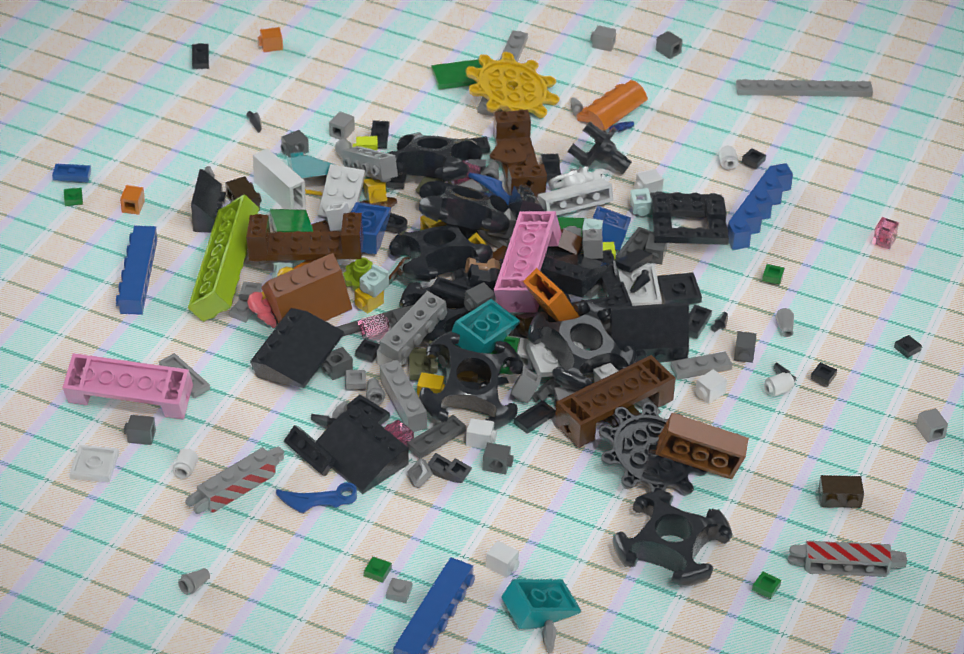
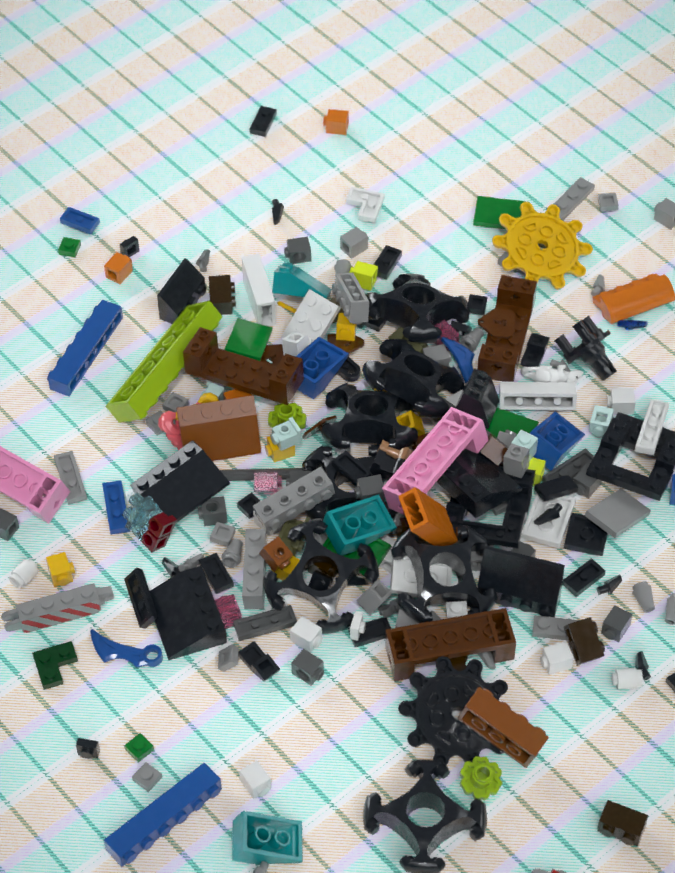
camera: 25 degrees right, 10 degrees up
(134, 178) = (129, 246): none -> black plate
(218, 450) = (60, 569): none -> yellow brick
(242, 386) = (115, 506): none -> blue plate
(252, 528) = (49, 661): none -> dark green plate
(285, 384) = (148, 522): none -> hips
(331, 583) = (87, 748): none -> black plate
(336, 91) = (369, 202): none -> white plate
(422, 373) = (276, 554): none -> dark orange brick
(524, 411) = (357, 626): none -> white plate
(547, 42) = (608, 202): none -> light grey plate
(688, 193) = (652, 427): none -> white tile
(696, 265) = (617, 513): none -> light grey tile
(700, 495) = (480, 778): none -> lime plant
(728, 364) = (584, 641): none -> dark brown brick
(754, 319) = (644, 596): none -> light grey cone

